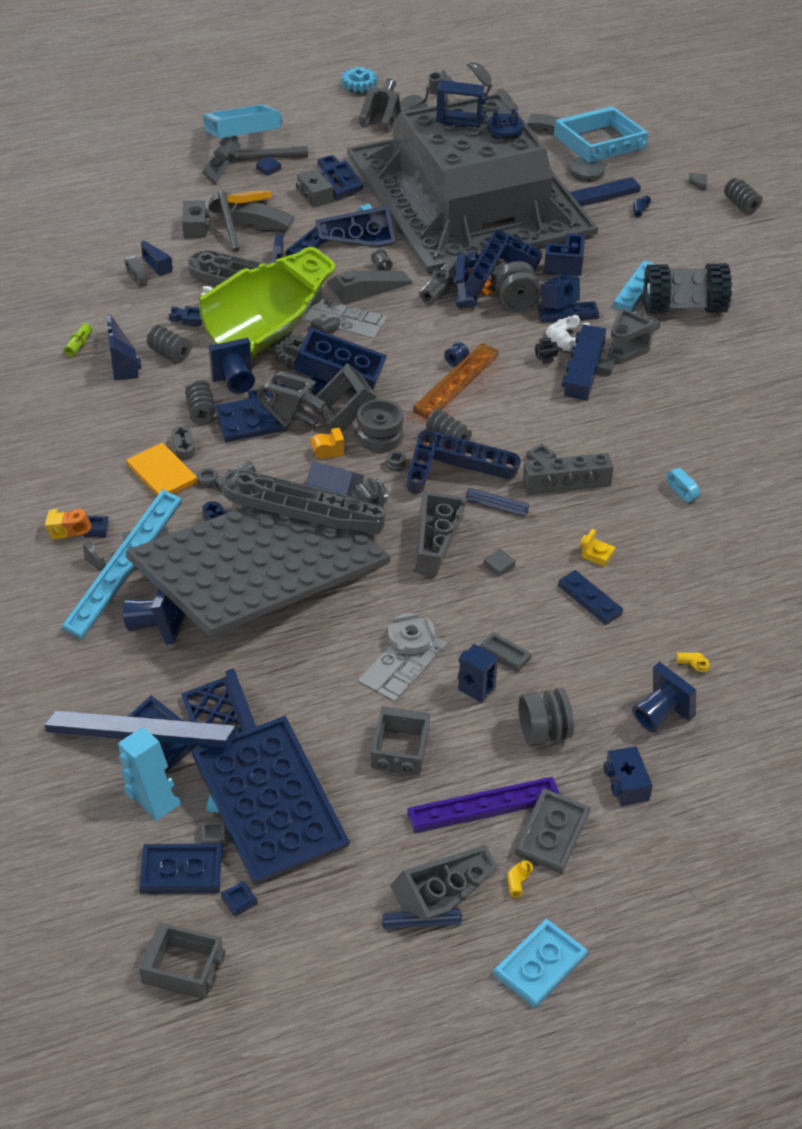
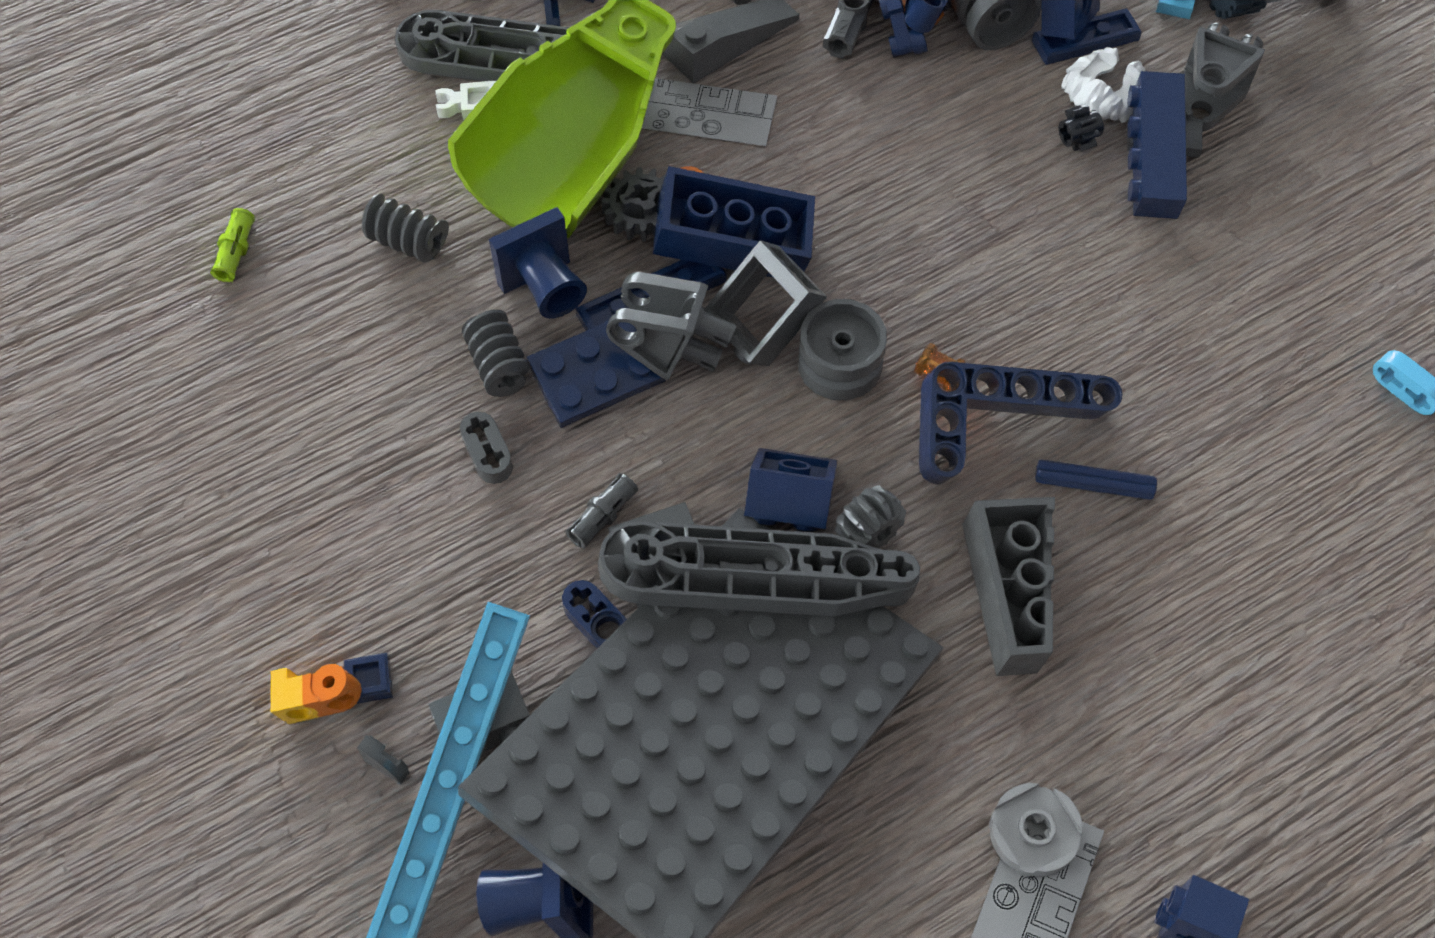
camera: 10 degrees left, 15 degrees up
(123, 354) = (324, 266): dark blue wedge -> none
(136, 270) = (304, 73): dark grey beam -> none
(157, 259) = (335, 42): dark blue slope -> none
(161, 470) = (462, 522): light orange tile -> none
(188, 316) = (427, 156): dark blue plate -> none
(206, 476) = (551, 520): dark grey tile -> none
(327, 325) = (679, 136): dark grey arm -> none
(328, 445) = (756, 406): light orange leg -> none
(396, 465) = (887, 406): dark grey bush -> none
(443, 423) = (961, 334): dark grey piece -> none
(456, 354) = (927, 162): dark blue wheel -> none
(456, 380) = (941, 223): clear orange plate -> none
(499, 562) = (1141, 620): dark grey tile -> none
(507, 652) = (1217, 834): dark grey tile -> none
(540, 452) = (1138, 358): dark grey tile -> none
(567, 473) = (1205, 396): dark grey brick -> none
(590, 597) = (1329, 670): dark blue plate -> none
(596, 550) = (1306, 558): yellow bracket -> none

